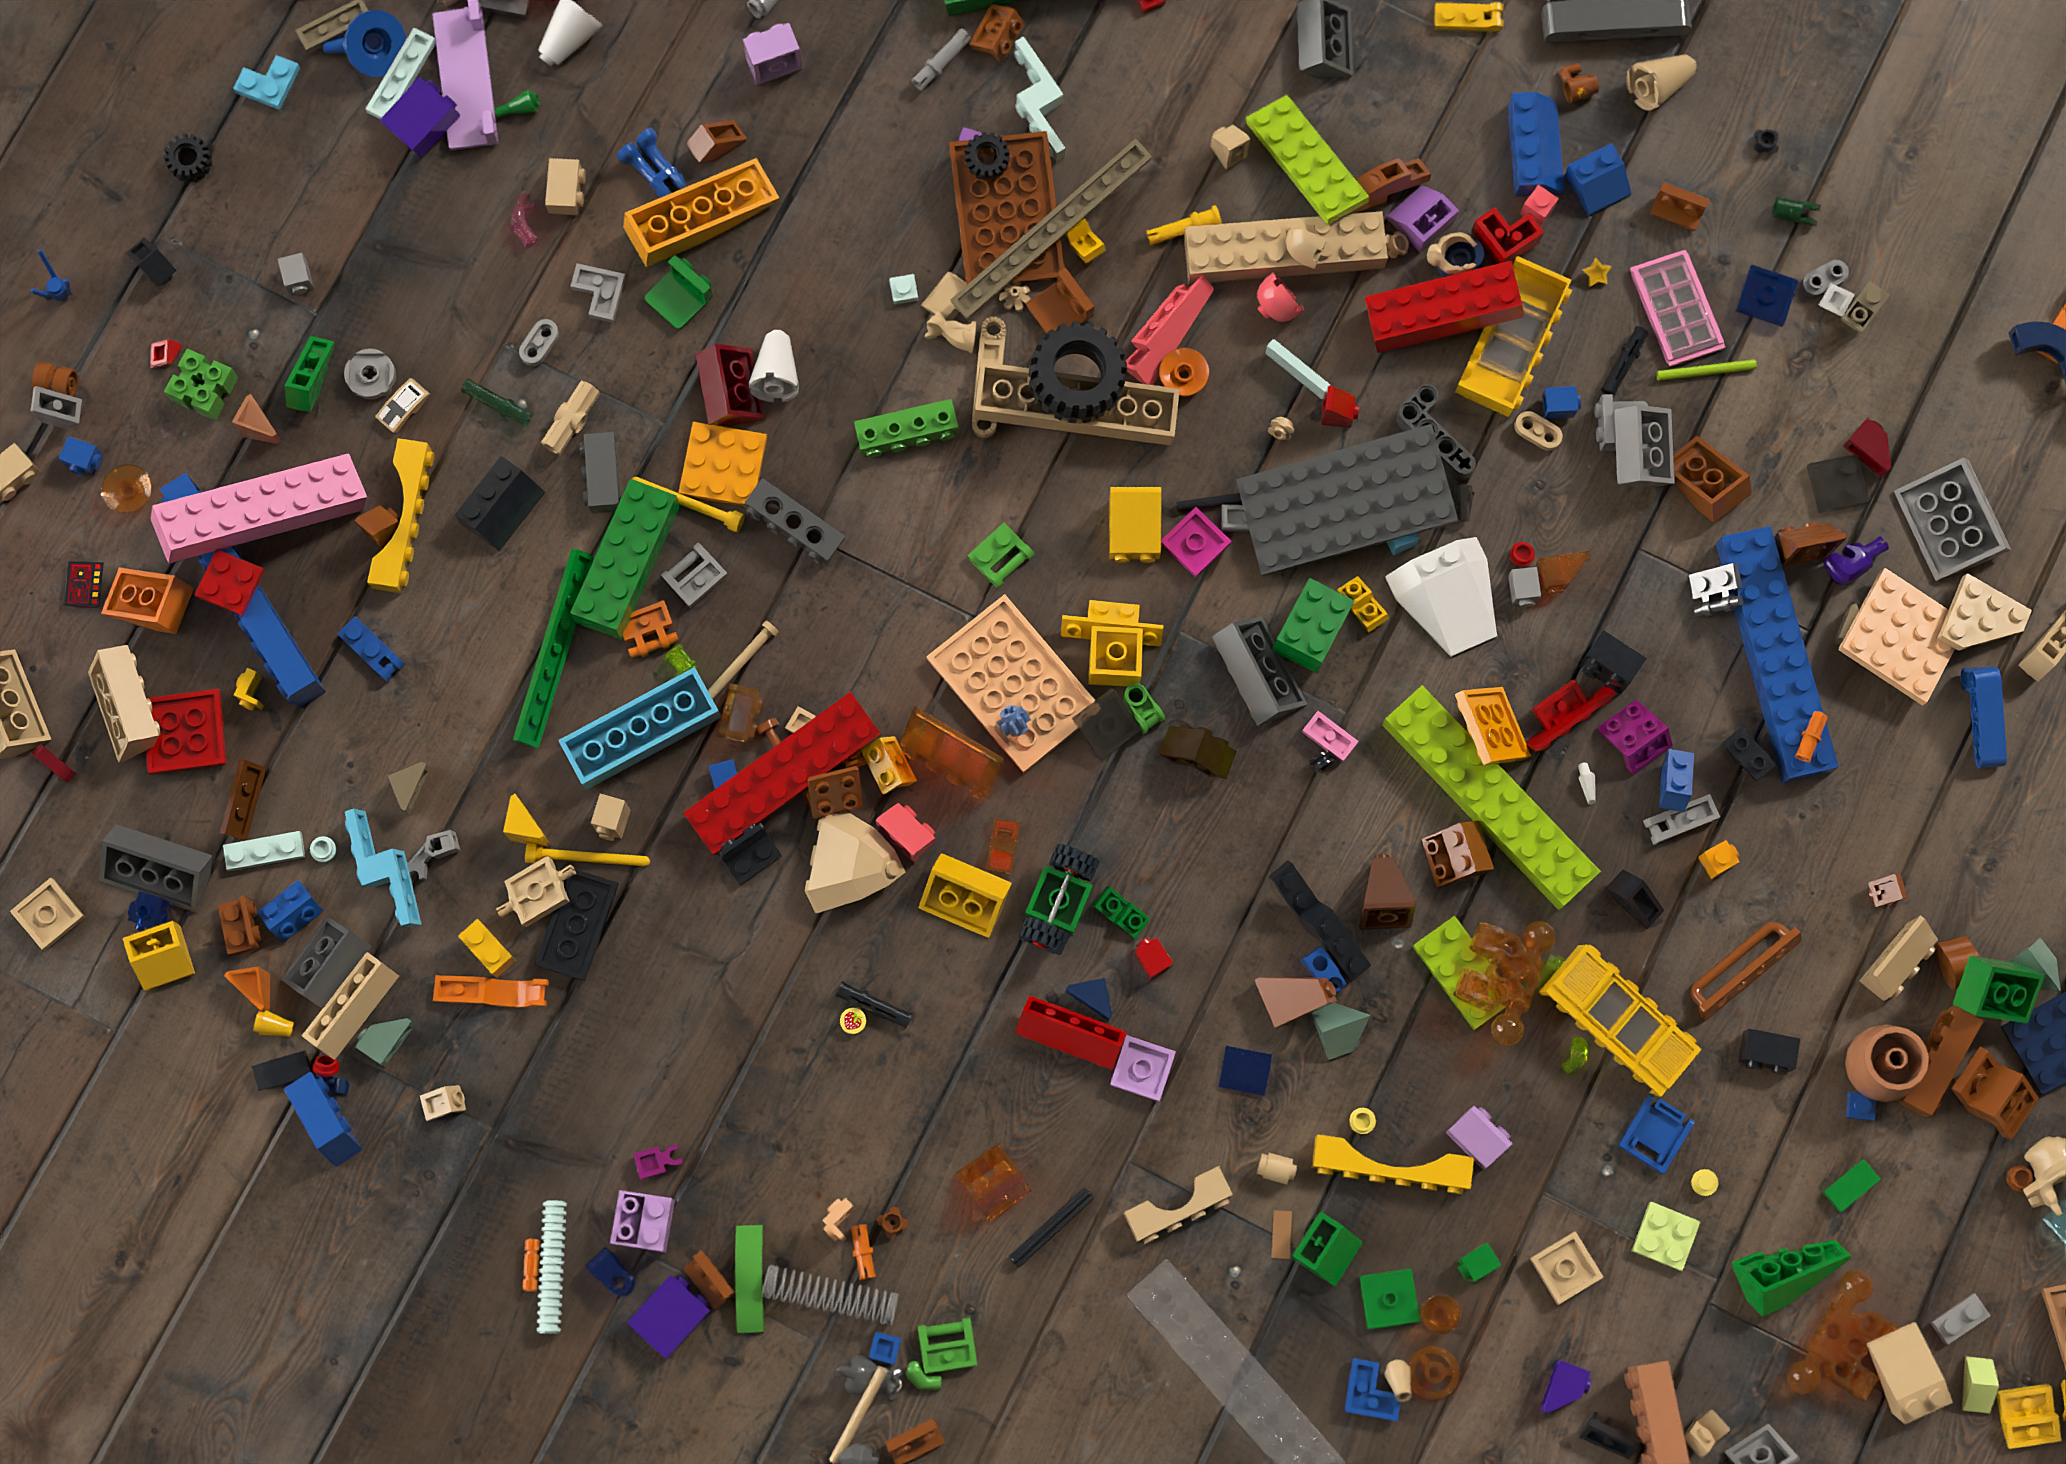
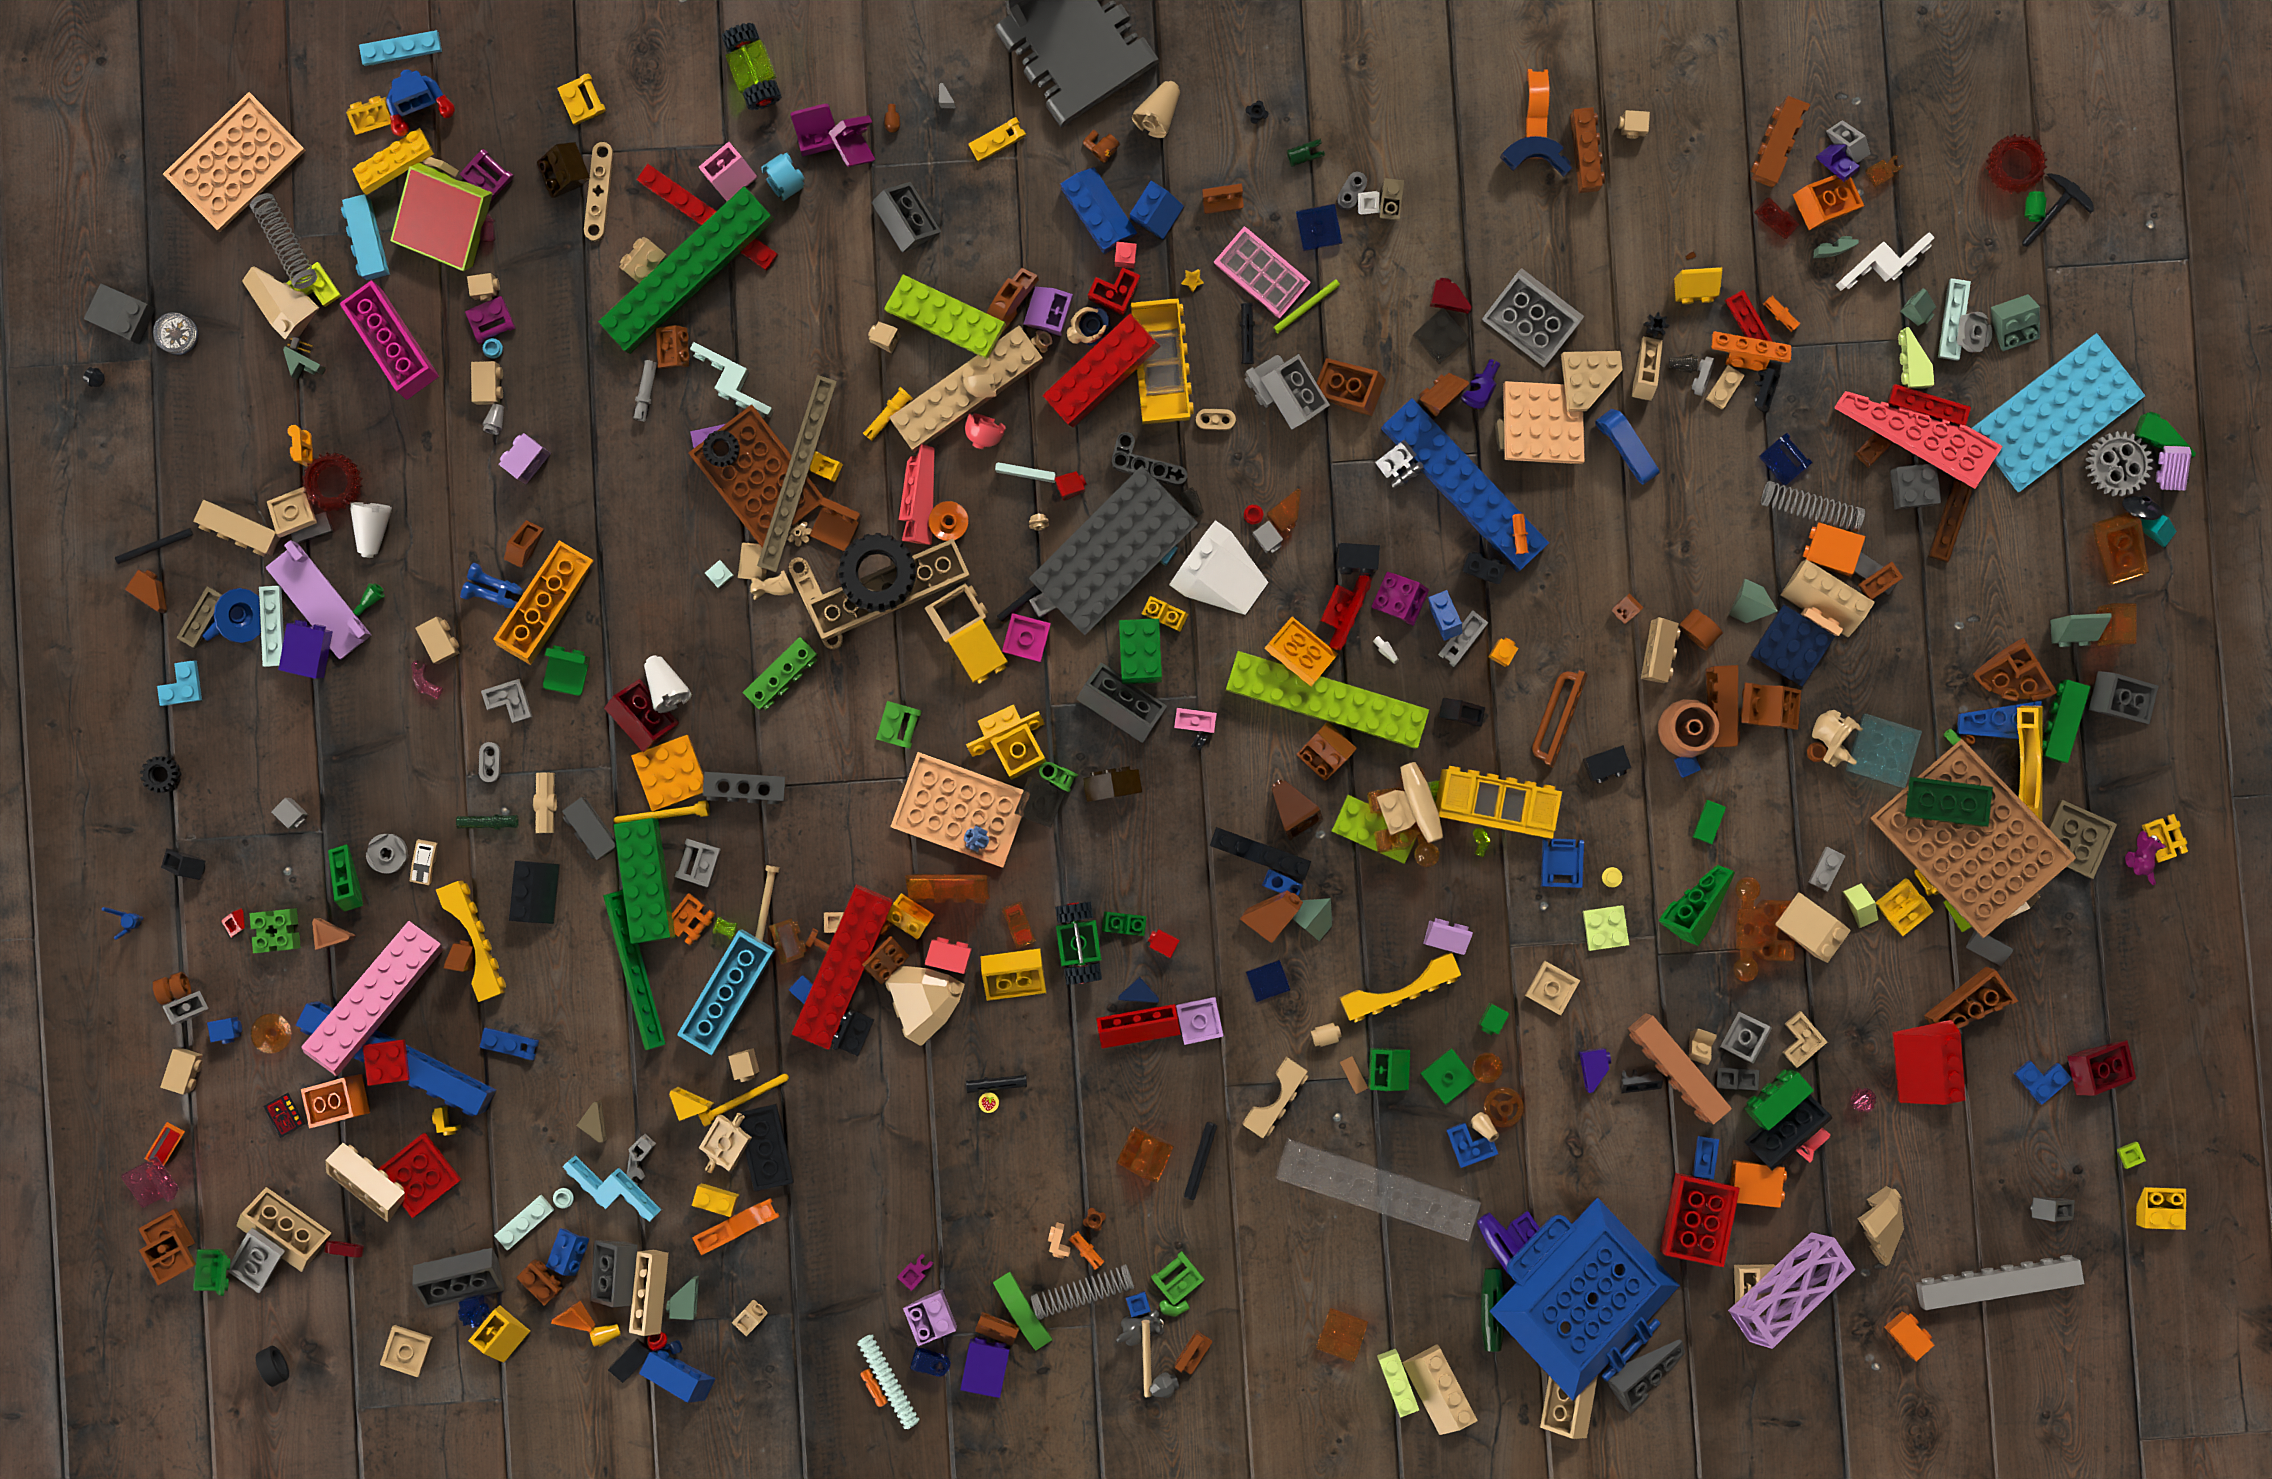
camera: 30 degrees left, 10 degrees up
(242, 800) = (488, 1198): reddish brown plate -> none
(1135, 451) = (931, 610): none -> tan window
(1362, 1121) = (1364, 969): light yellow plate -> none
(1522, 962) = (1413, 805): none -> tan plate
(1560, 402) = (1220, 391): blue brick -> none
(1998, 989) = (1737, 636): green brick -> none

